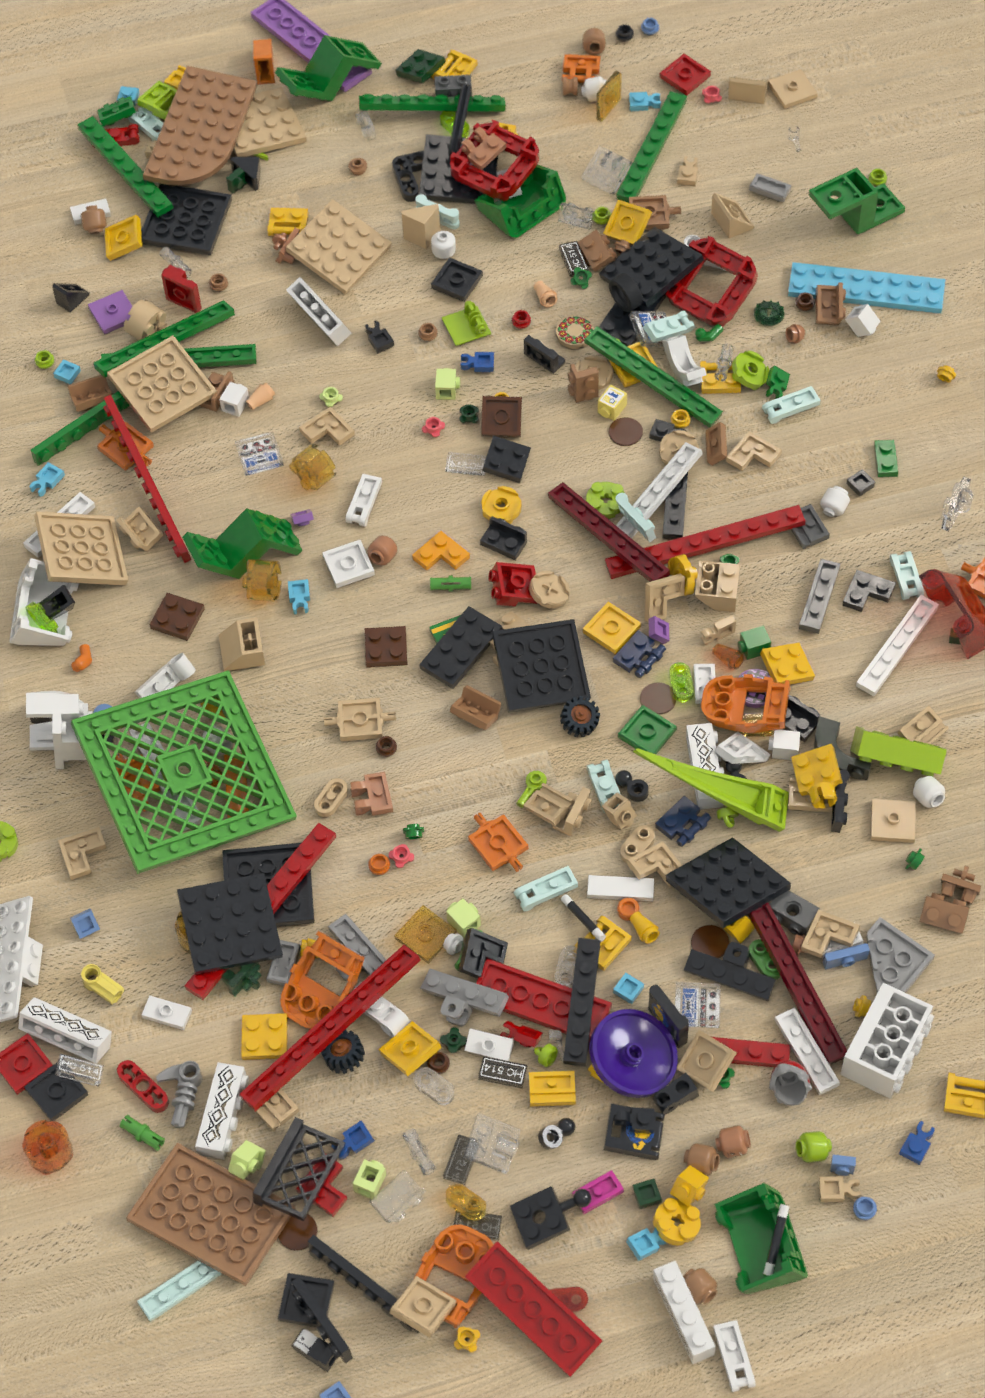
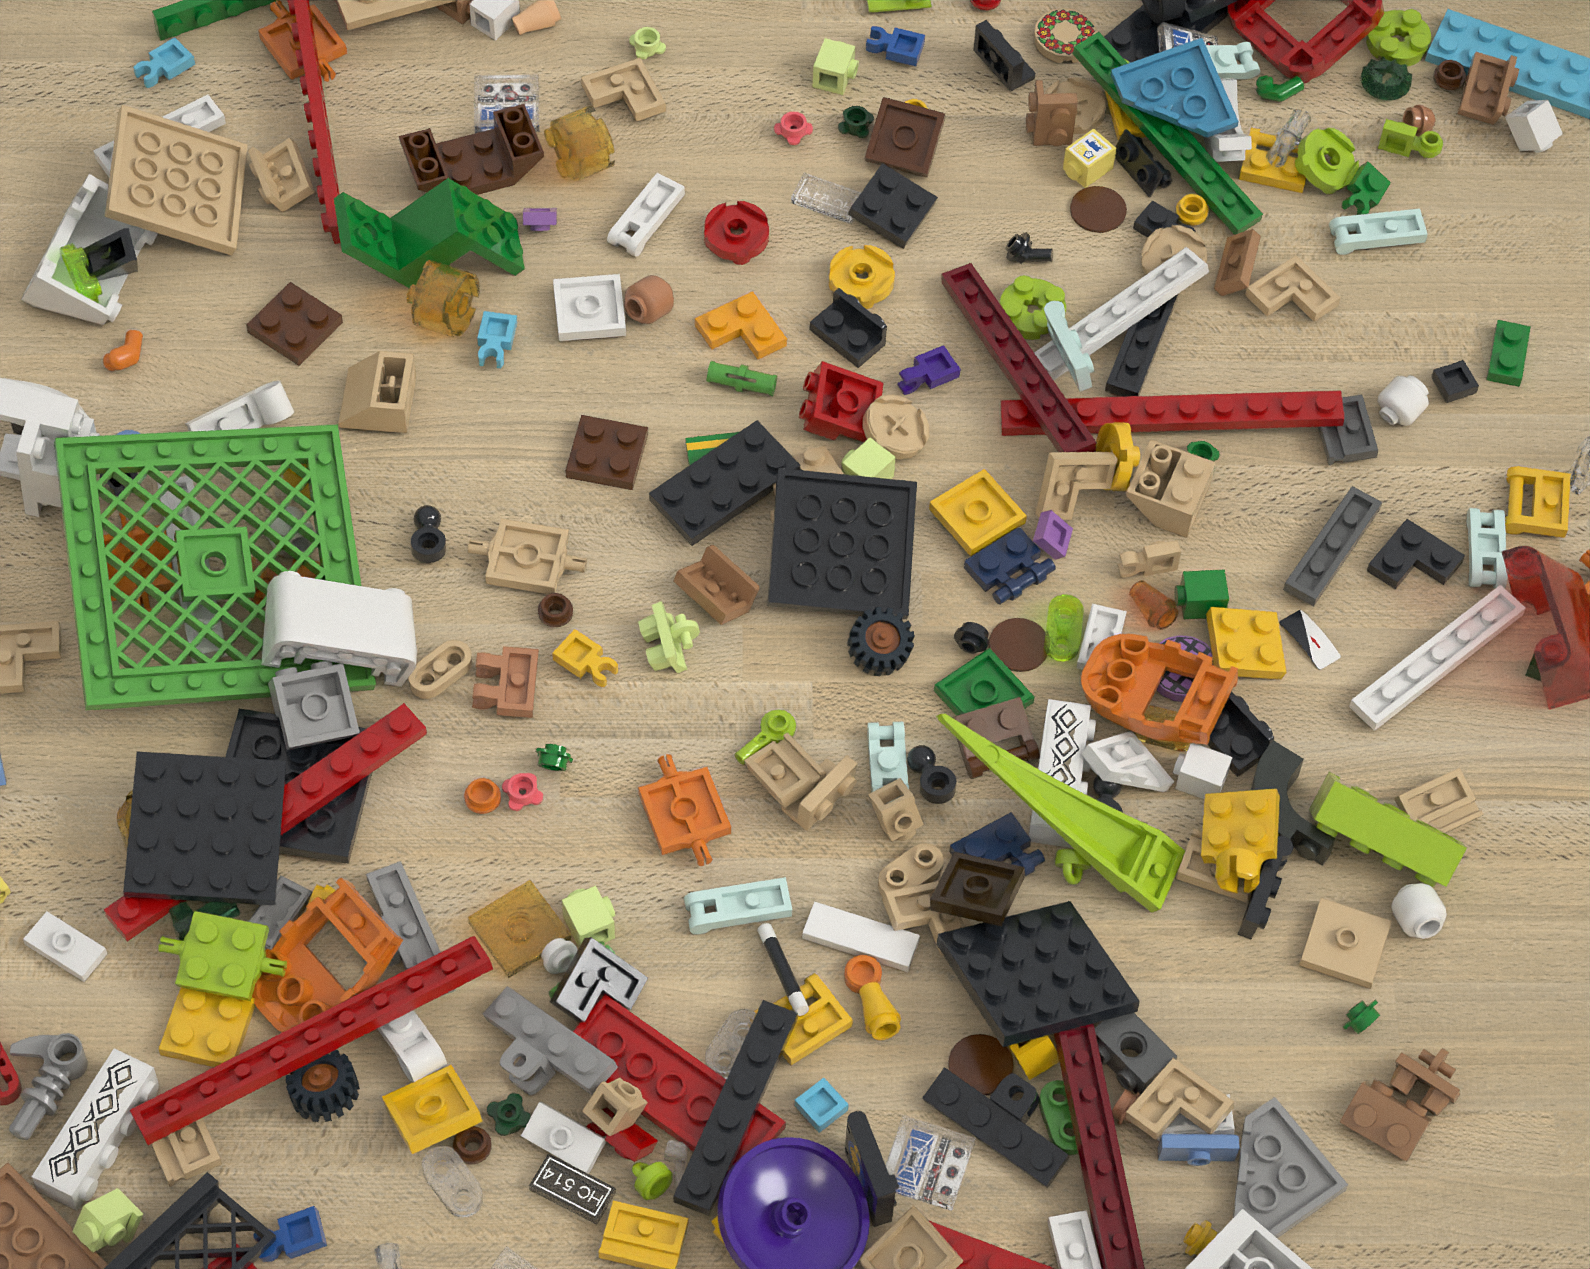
camera: 10 degrees right, 0 degrees up
(253, 492) = (478, 160): none -> reddish brown slope
(262, 993) = (222, 956): none -> lime plate
(267, 786) = (339, 625): none -> white windscreen
(267, 836) = (313, 705): none -> light grey plate
(294, 713) = (427, 521): none -> black plate
(410, 768) = (583, 655): none -> yellow plate
(420, 506) = (731, 246): none -> red plate
(450, 740) = (672, 634): none -> yellowish green hips
(517, 1015) = (621, 1099): none -> tan brick
(540, 614) = (869, 461): none -> yellowish green brick
(558, 549) = (932, 367): none -> dark purple plate
(588, 467) = (1020, 250): none -> black plate
(631, 701) = (972, 637): none -> black plate
(642, 398) = (1140, 165): none -> black hinge
(654, 349) = (1178, 88): none -> dark azure plate
(662, 746) = (998, 724): none -> reddish brown plate
(680, 843) = (977, 888): none -> dark brown plate
(770, 277) = (1405, 24): none -> lime plate
(789, 346) = (1402, 138): none -> lime plate
(822, 652) = (1311, 639): none -> sticker
(934, 541) = (1549, 501): none -> yellow plate

